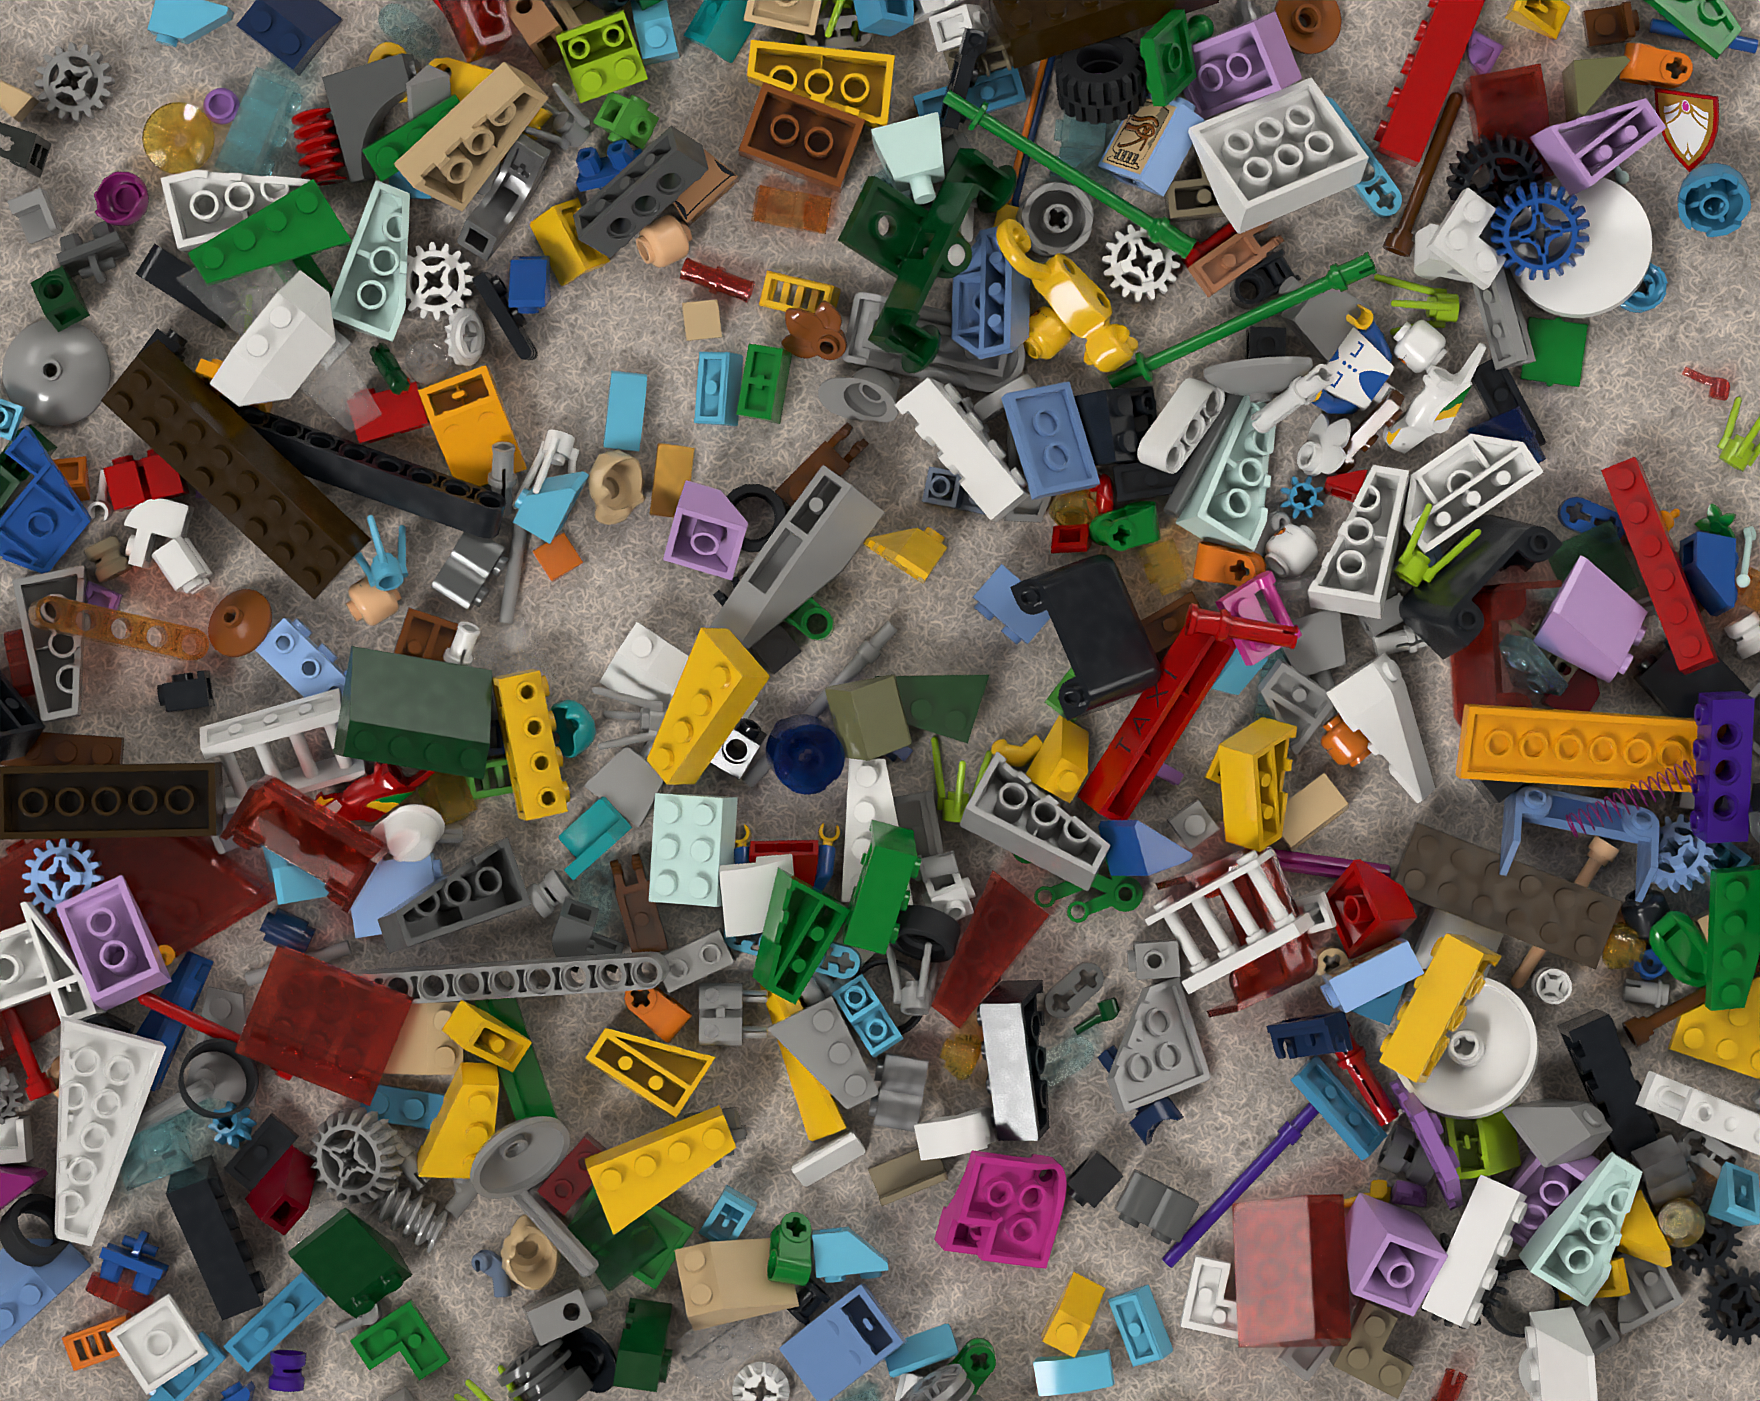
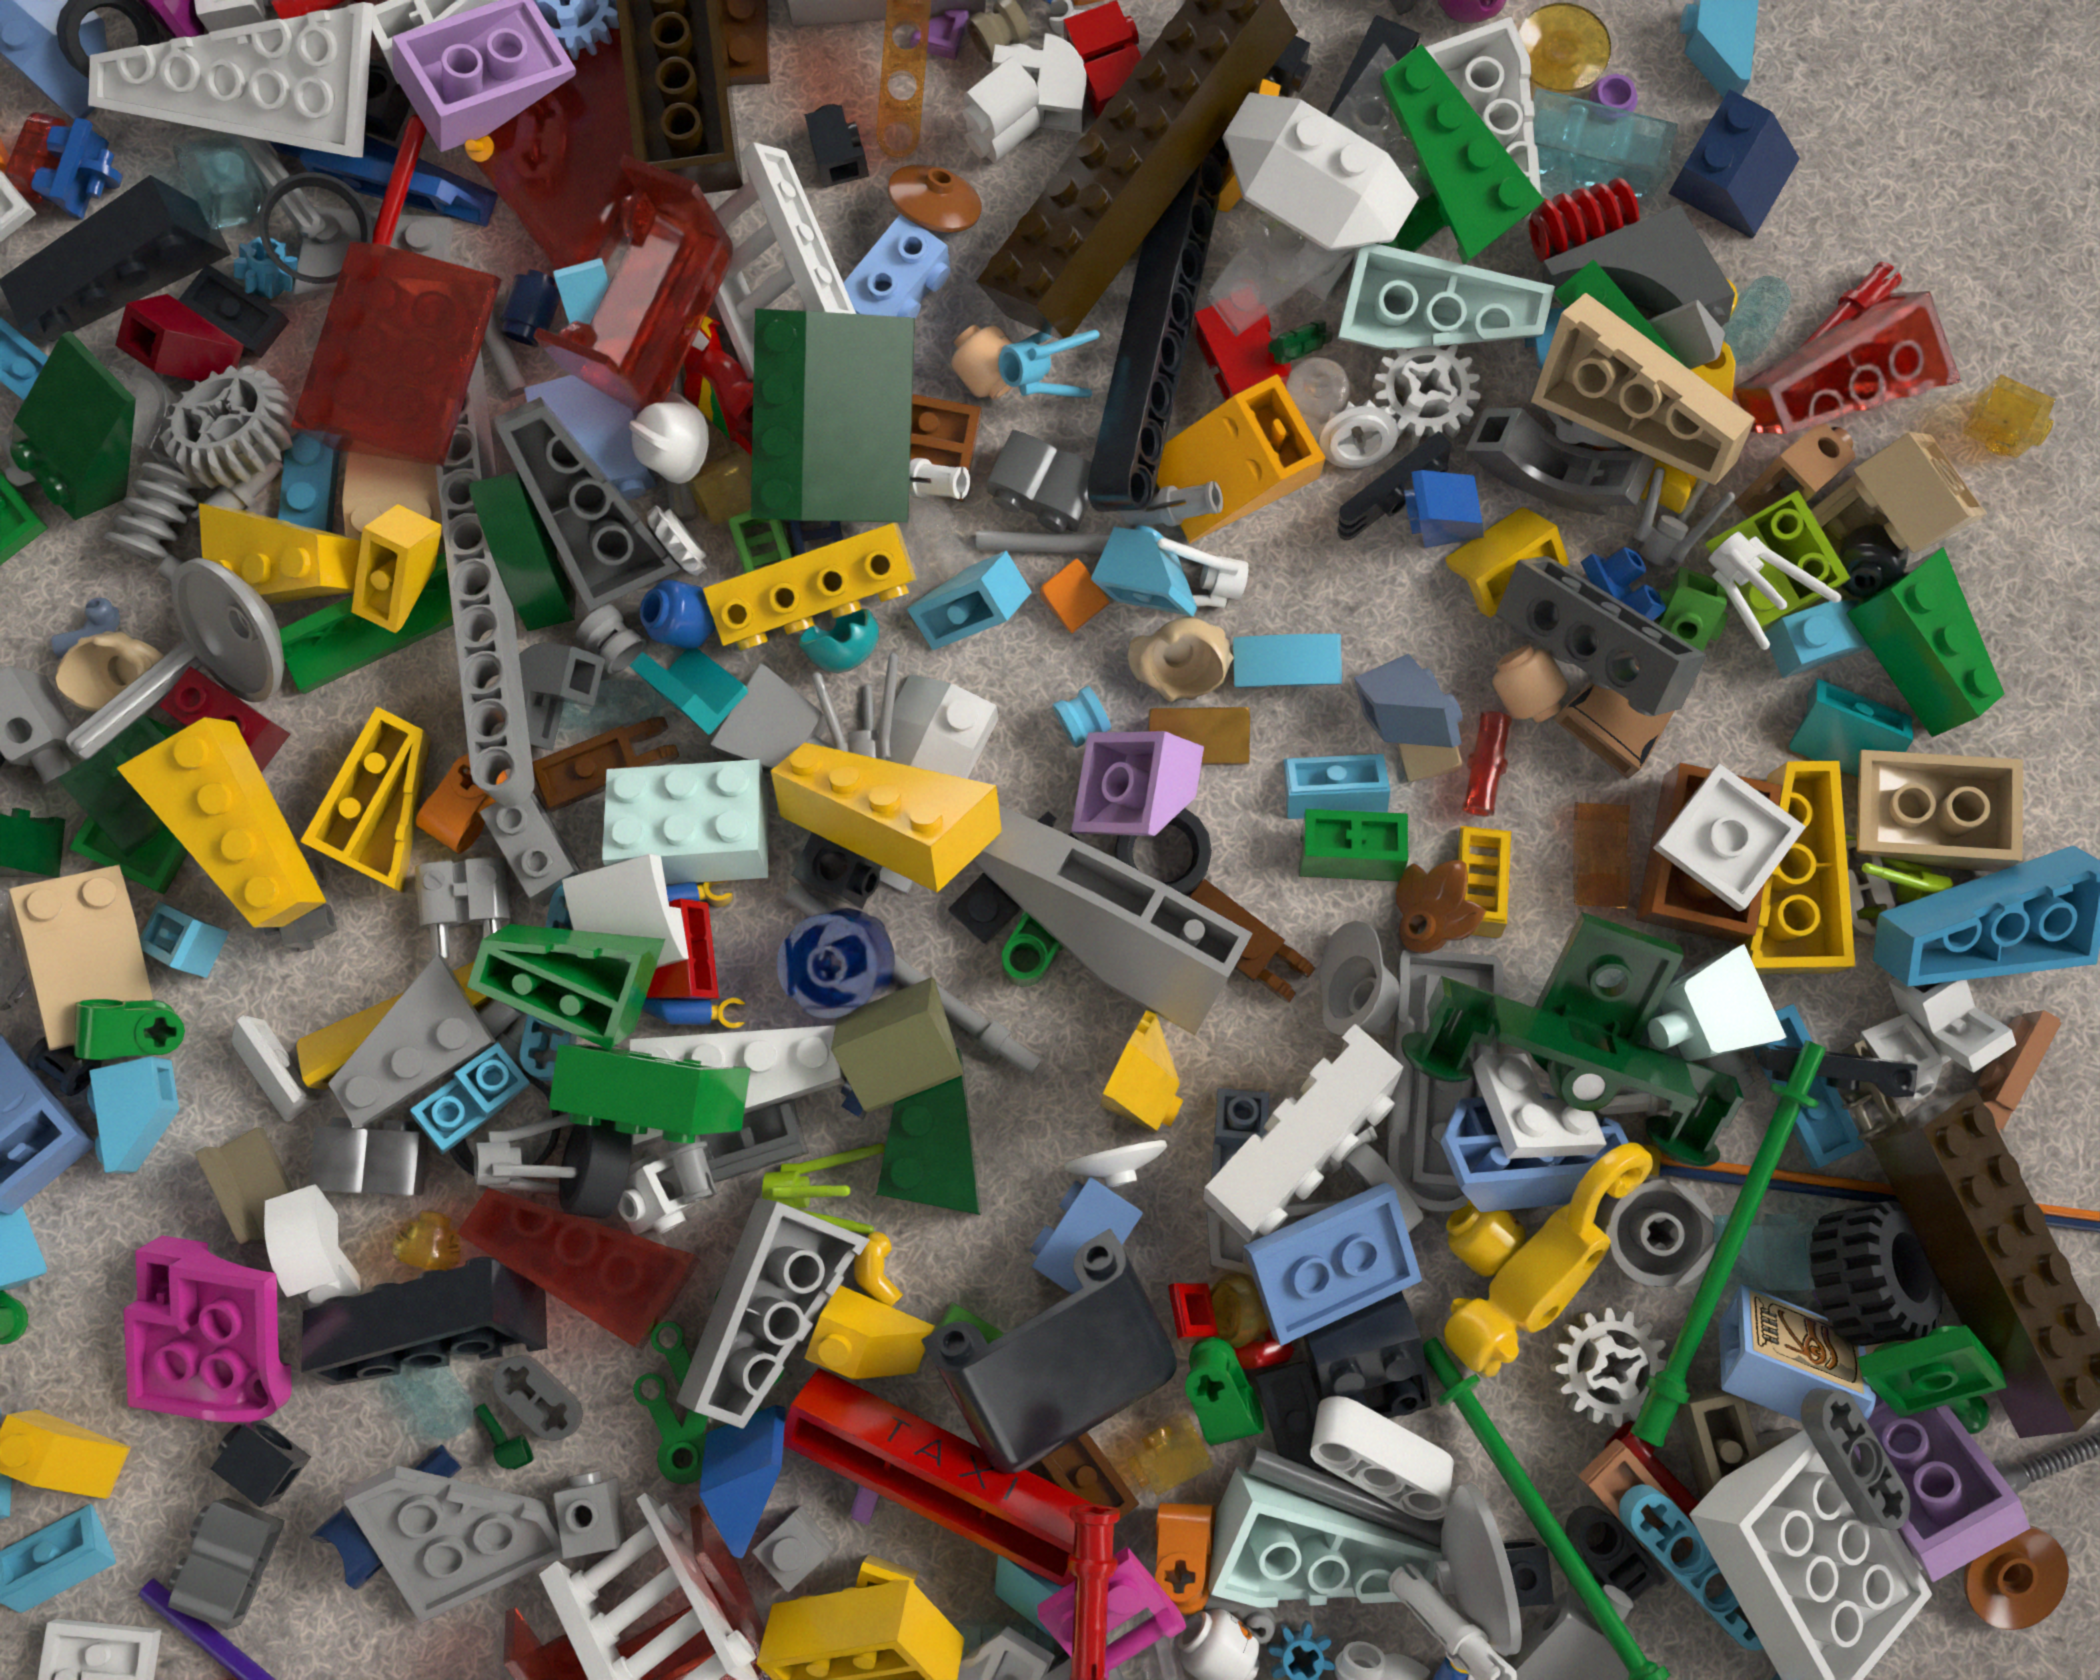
camera: 90 degrees right, 10 degrees down
(483, 837) = (677, 540): none -> white gear
(484, 945) = (523, 551): none -> dark green slope
(538, 842) = (677, 614): none -> blue head
(555, 631) = (970, 601): none -> medium azure slope
(602, 86) = (1740, 561): none -> white plant
(648, 562) = (1081, 716): none -> medium azure wheel
(671, 332) = (1408, 706): none -> sand blue slope
(796, 128) = (1729, 837): none -> white plate
(968, 577) = (1117, 1164): none -> white dish
(972, 297) = (1526, 1120): none -> white plate
(1209, 133) = (1835, 1429): none -> dark grey beam
(1279, 233) = (1693, 1571): none -> medium azure beam

